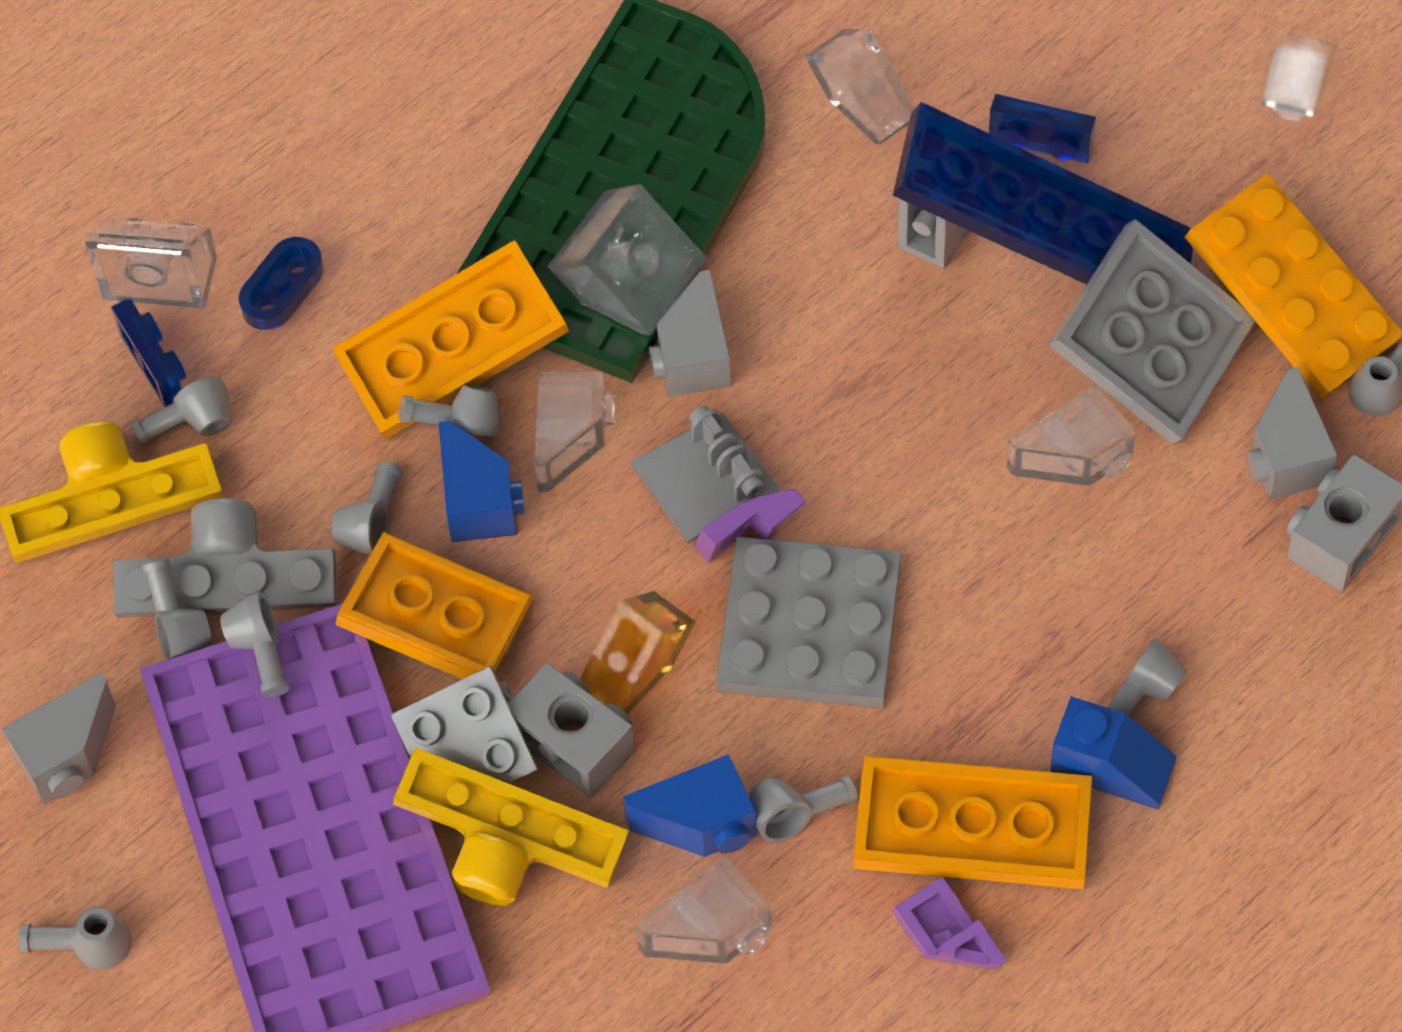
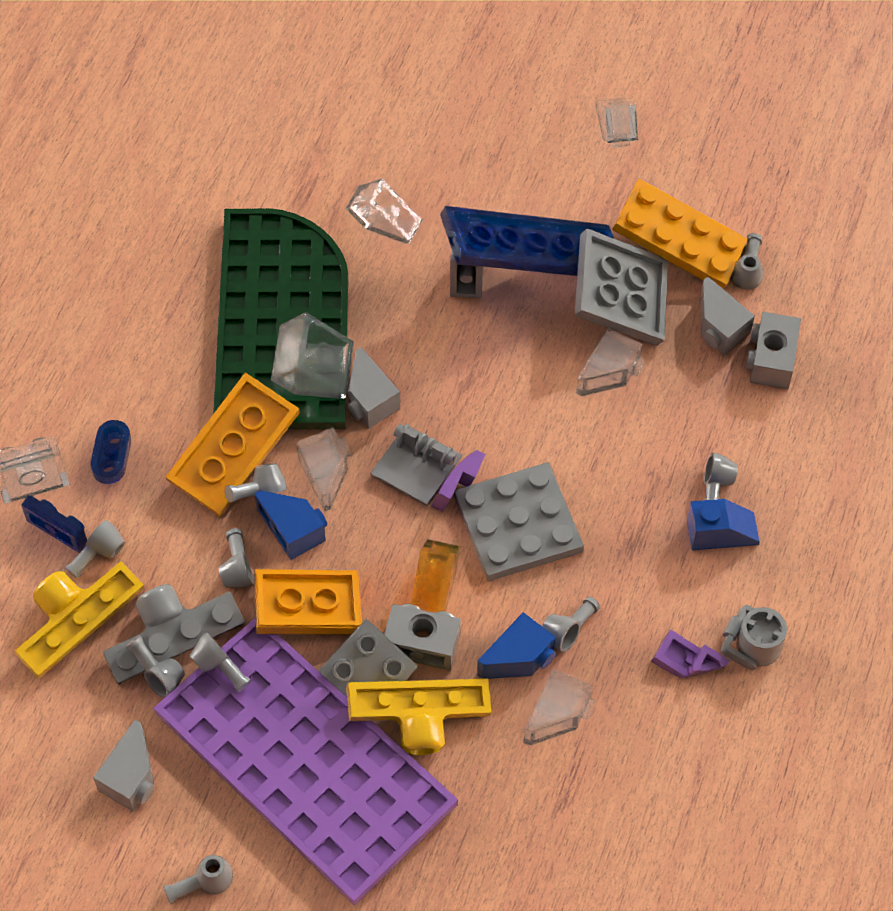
camera: 30 degrees left, 0 degrees up
(973, 822) = (669, 593): light orange plate -> none
(1043, 128) = (503, 198): clear blue plate -> none
(1070, 944) = (759, 638): none -> light grey piece

